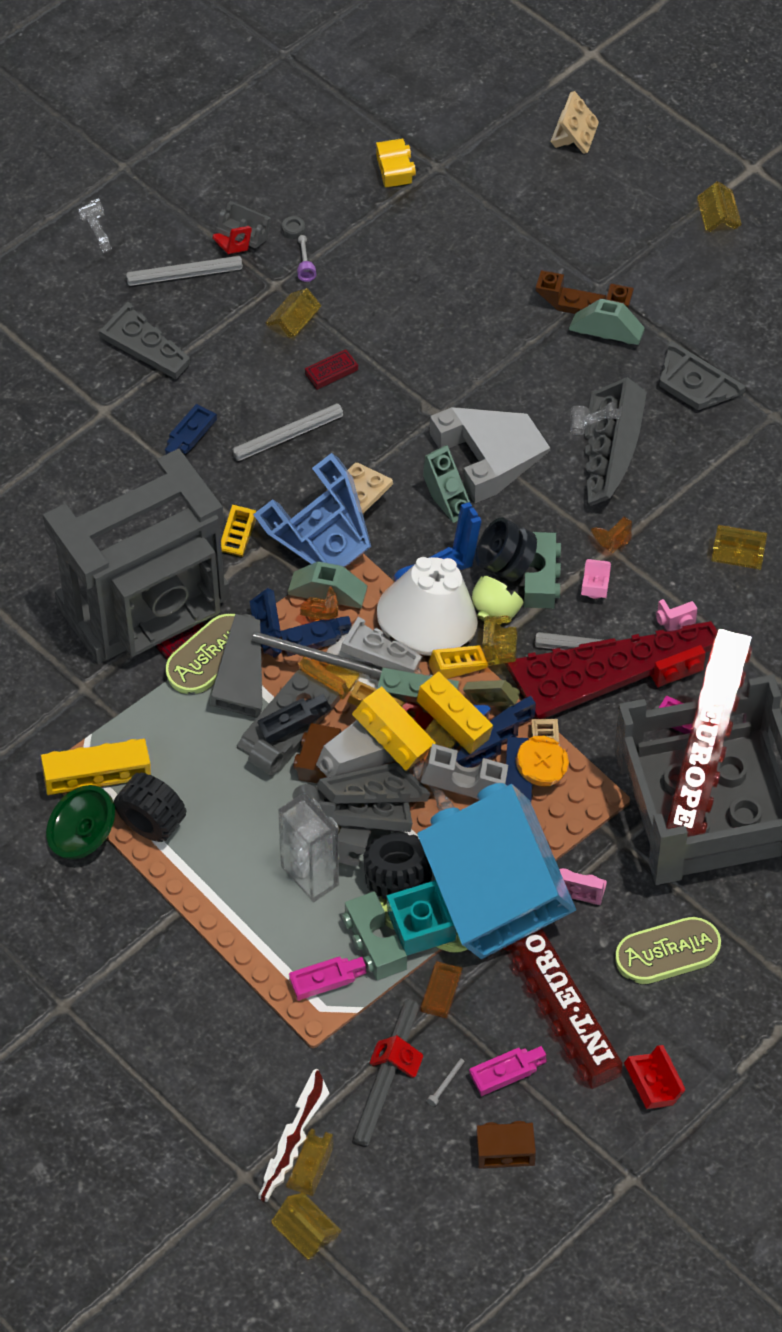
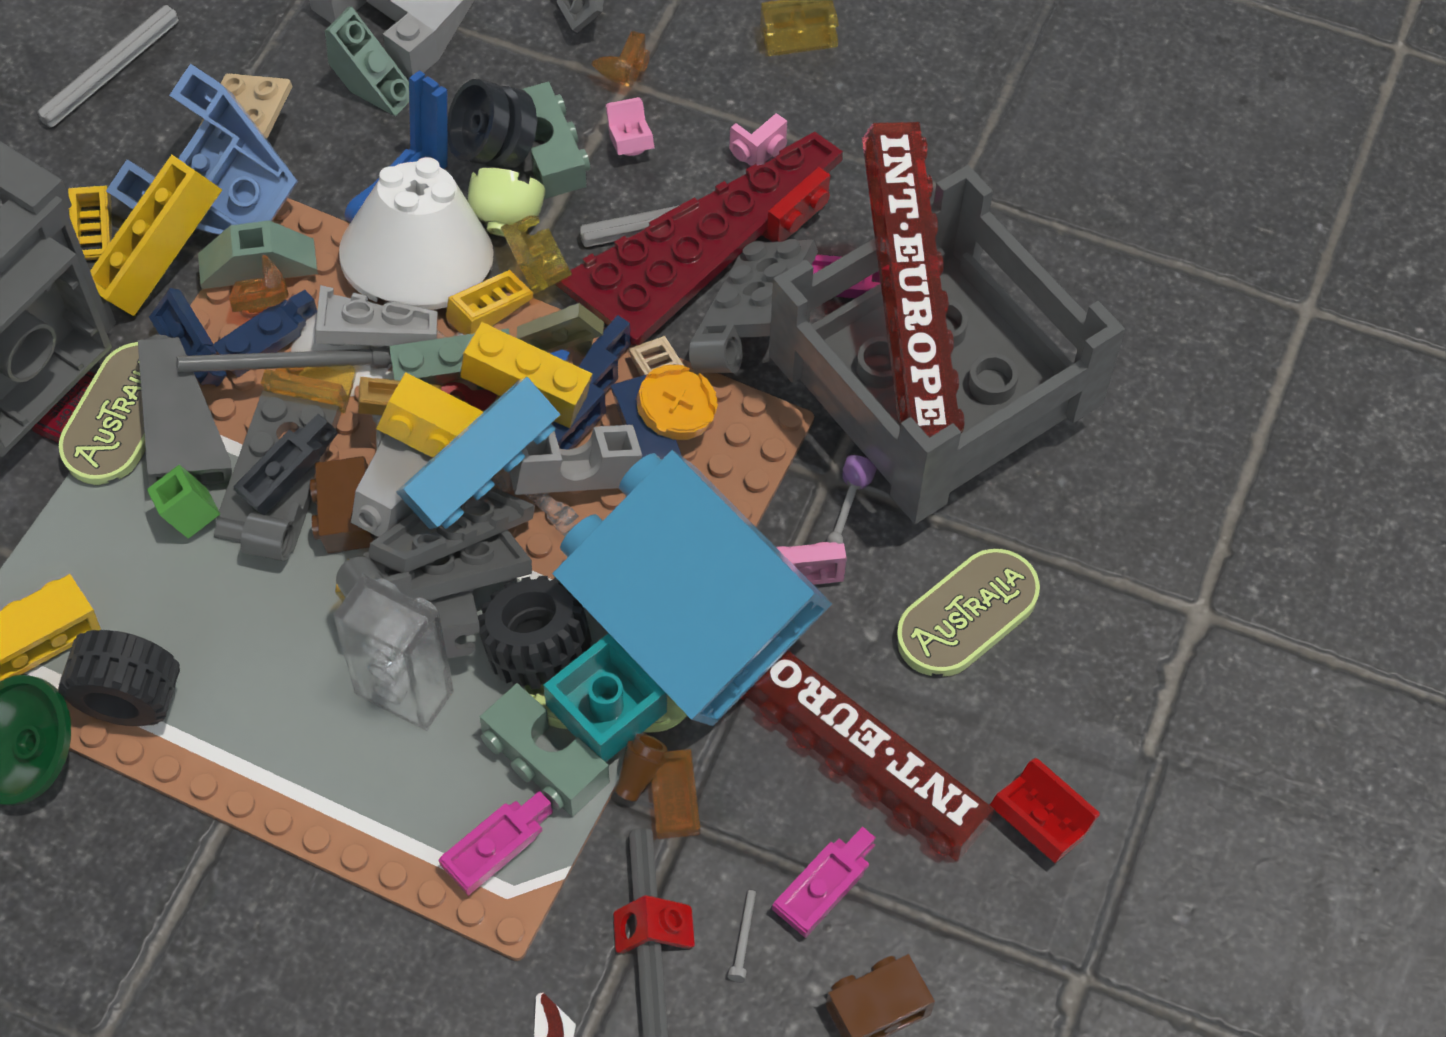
camera: 25 degrees left, 5 degrees up
(226, 719) = (183, 501): none -> bright green brick
(270, 551) = (153, 235): none -> yellow brick
(403, 748) = (478, 453): none -> dark azure brick
(427, 964) = (640, 764): none -> reddish brown cone
(585, 733) = (744, 304): none -> dark grey hinge
(638, 845) = (857, 474): none -> hinge

